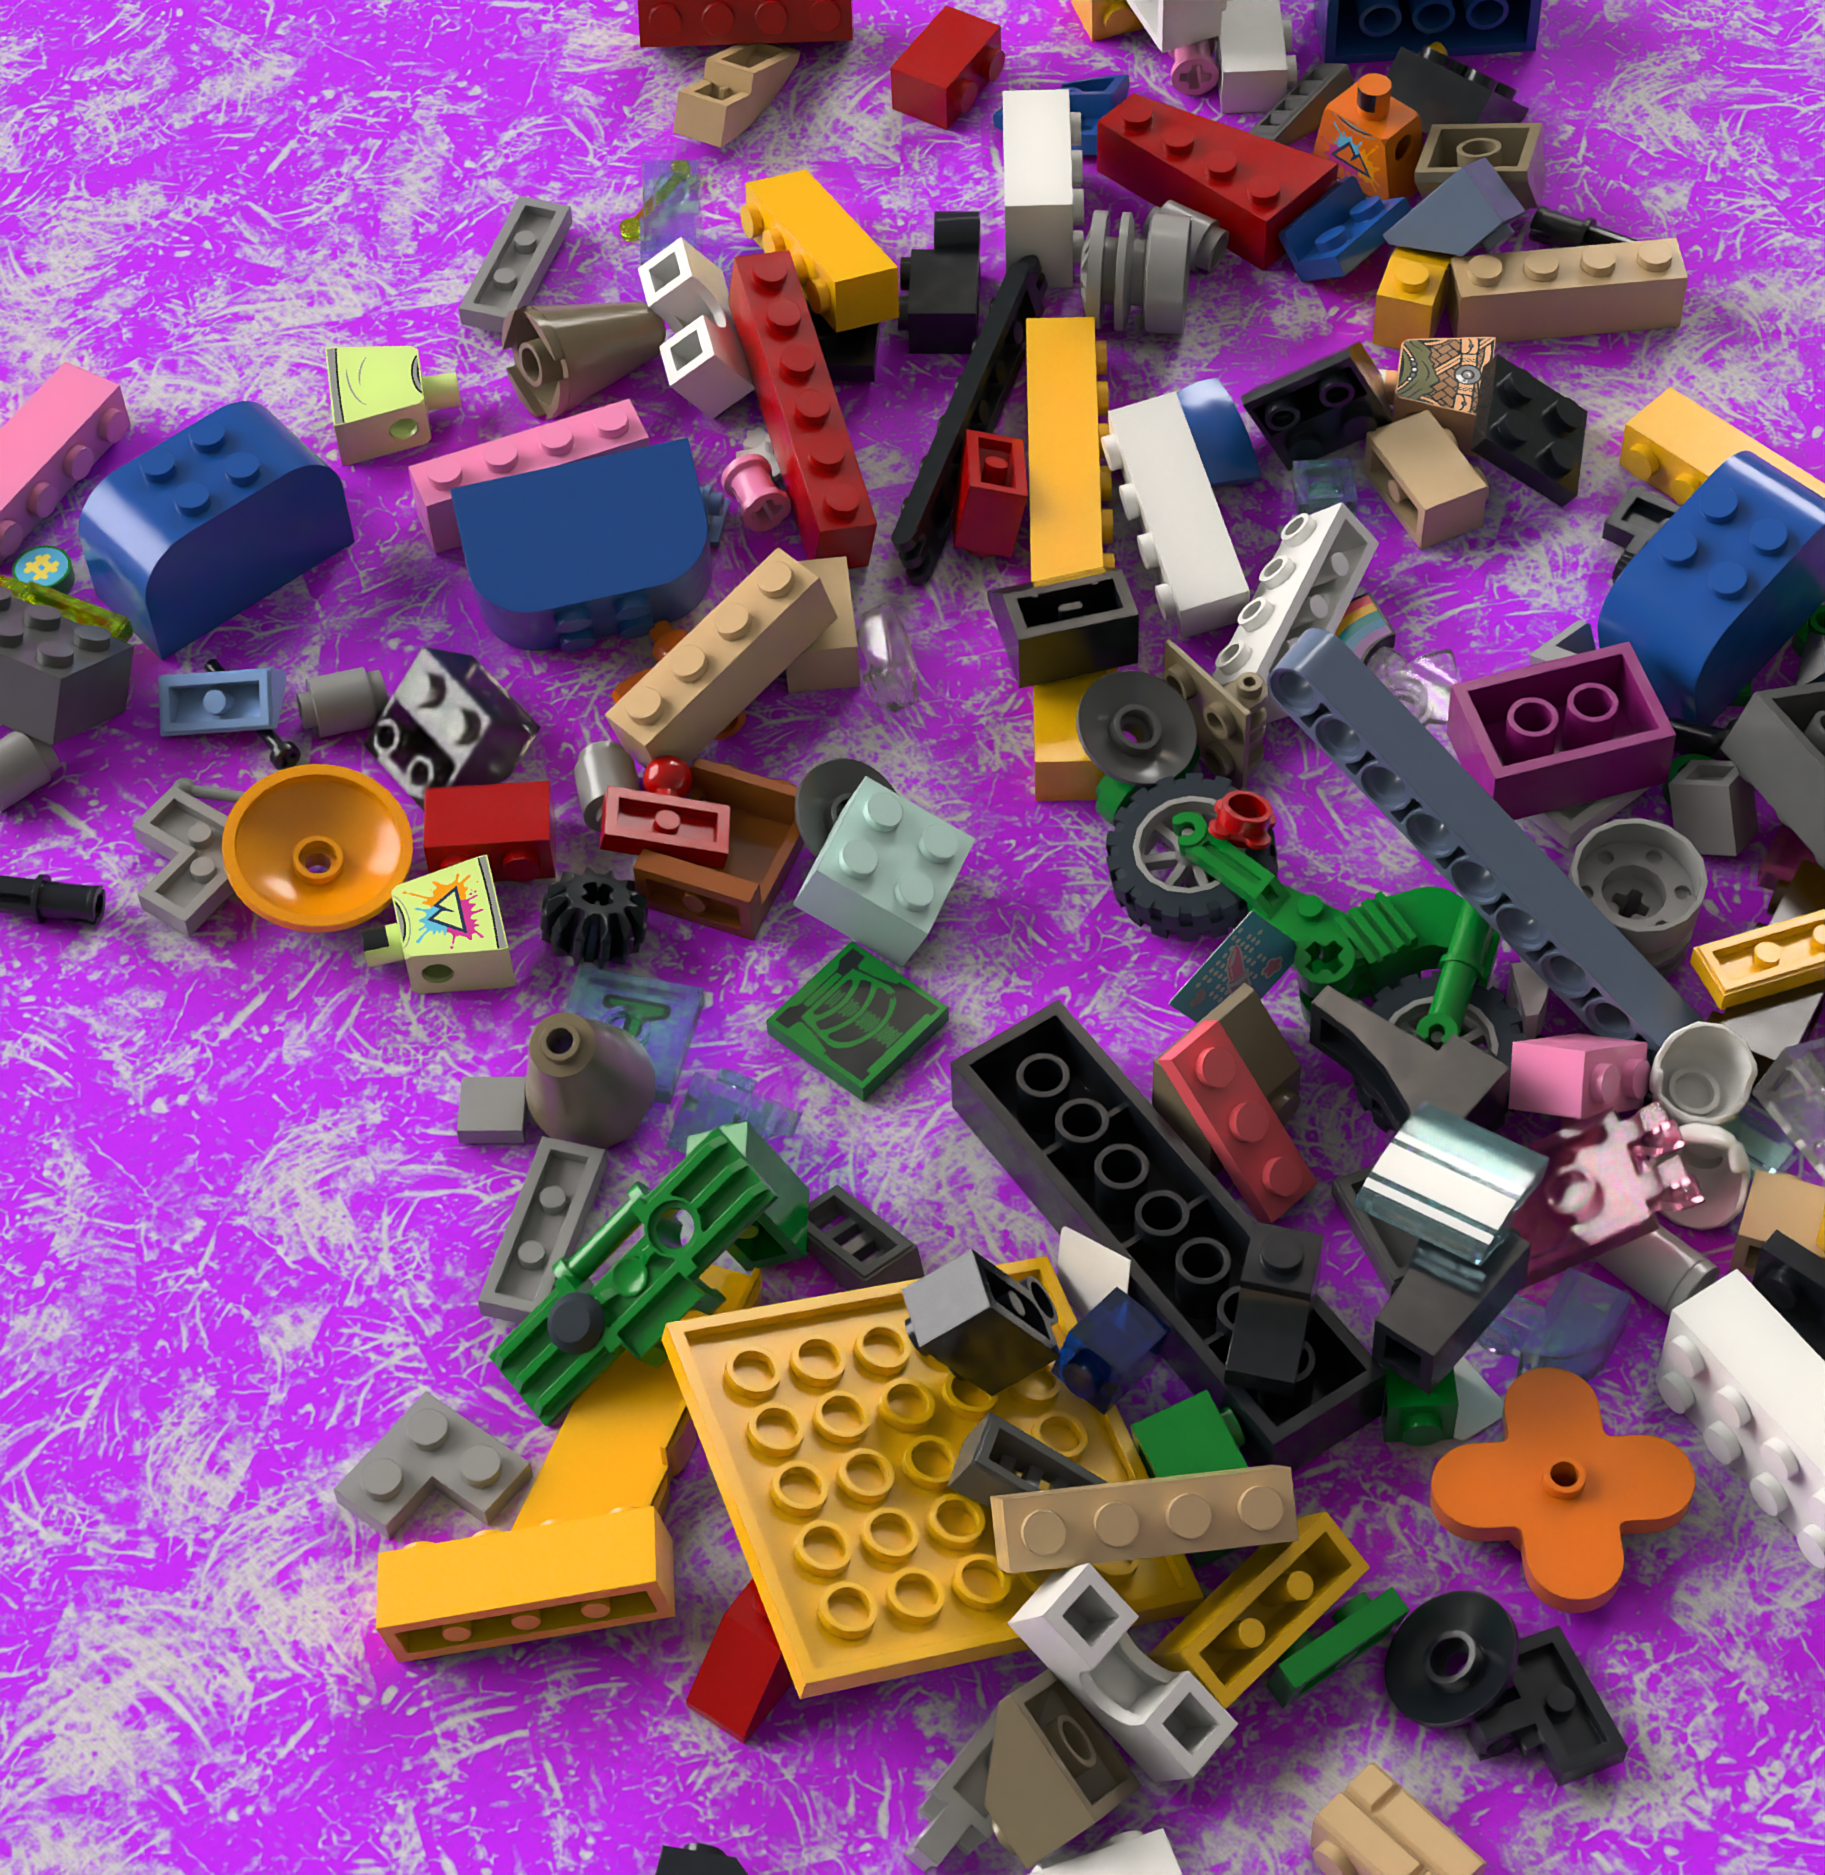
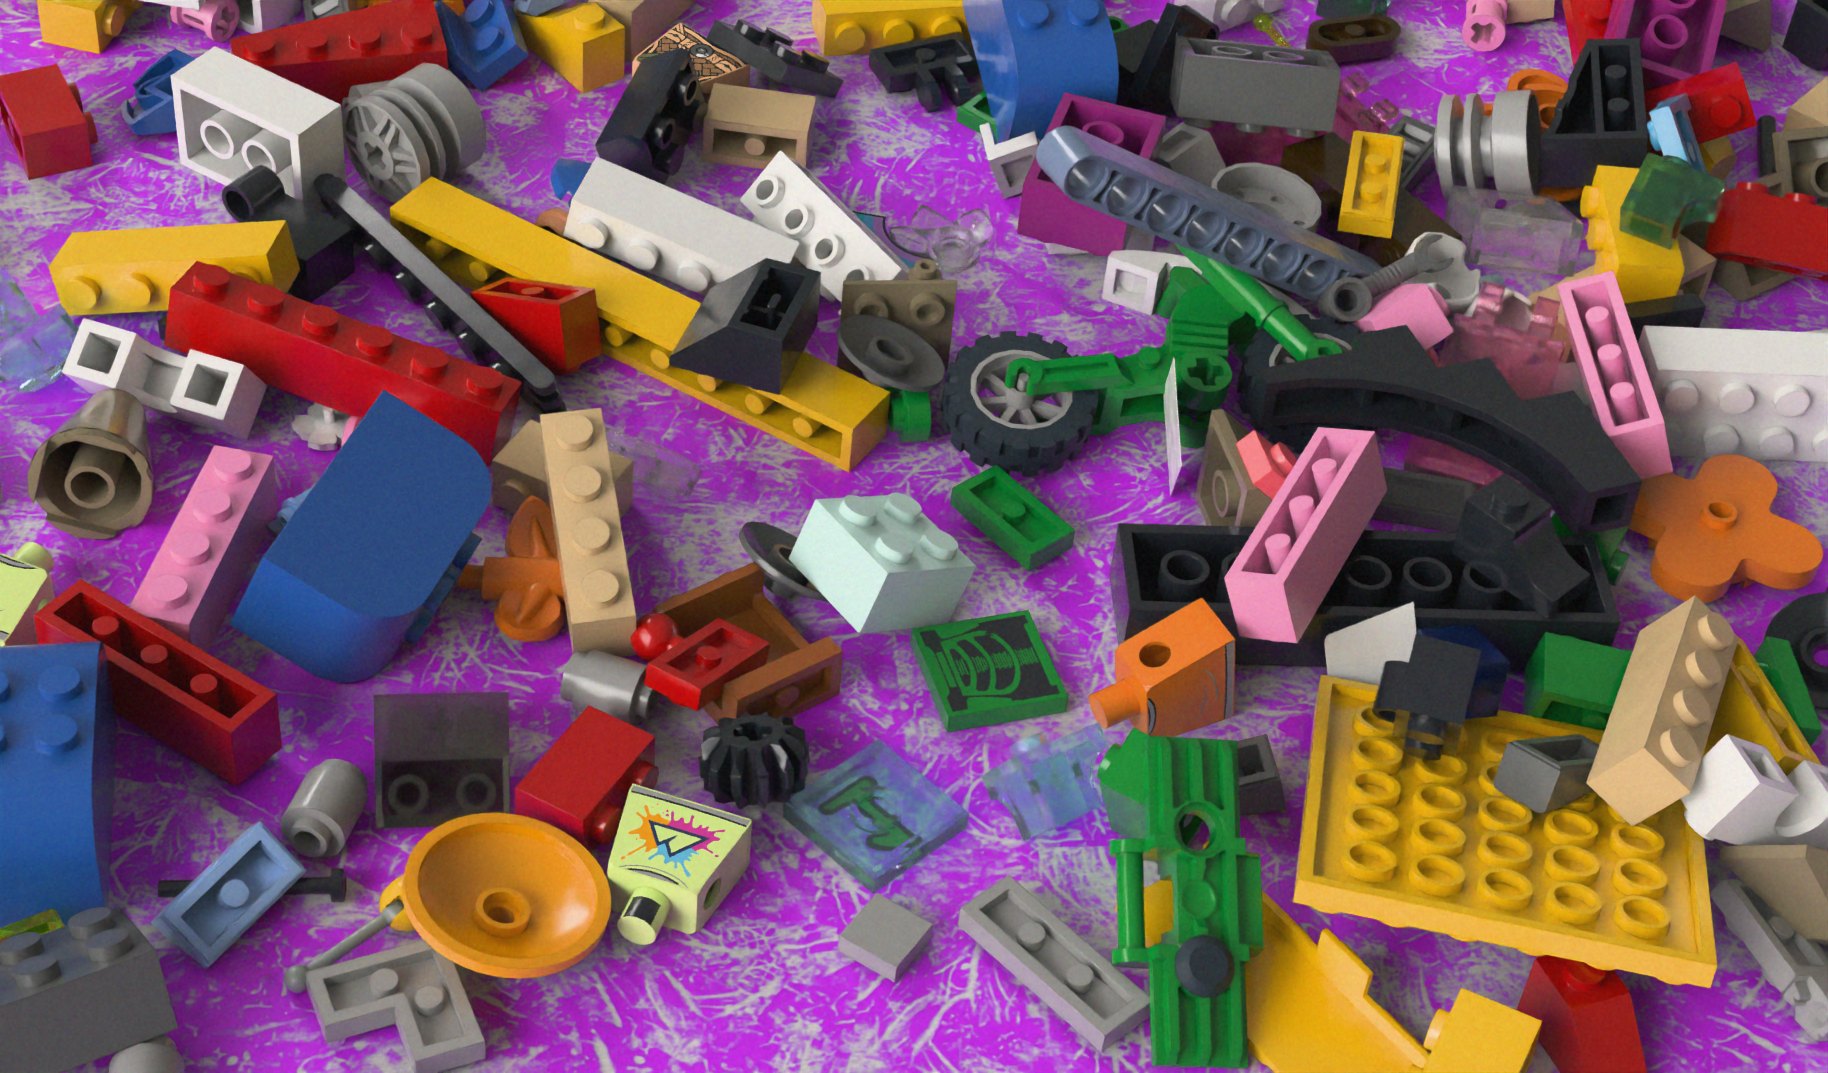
camera: 65 degrees left, 10 degrees down
(373, 532) = (170, 684): none -> red brick
(587, 1080) = (936, 839): dark tan cone -> none
(927, 1145) = (1172, 675): none -> orange torso
(1059, 936) = (1012, 517): none -> green plate
(1120, 1129) = (1306, 535): none -> bright pink brick
(1243, 820) = (1046, 338): red plate -> none
(1323, 485) = (712, 176): clear light blue plate -> none
(1451, 1183) = (1508, 390): clear light blue slope -> none
(1539, 1020) = (1358, 293): none -> dark grey brick
(1632, 1279) = (1615, 372): none -> bright pink brick

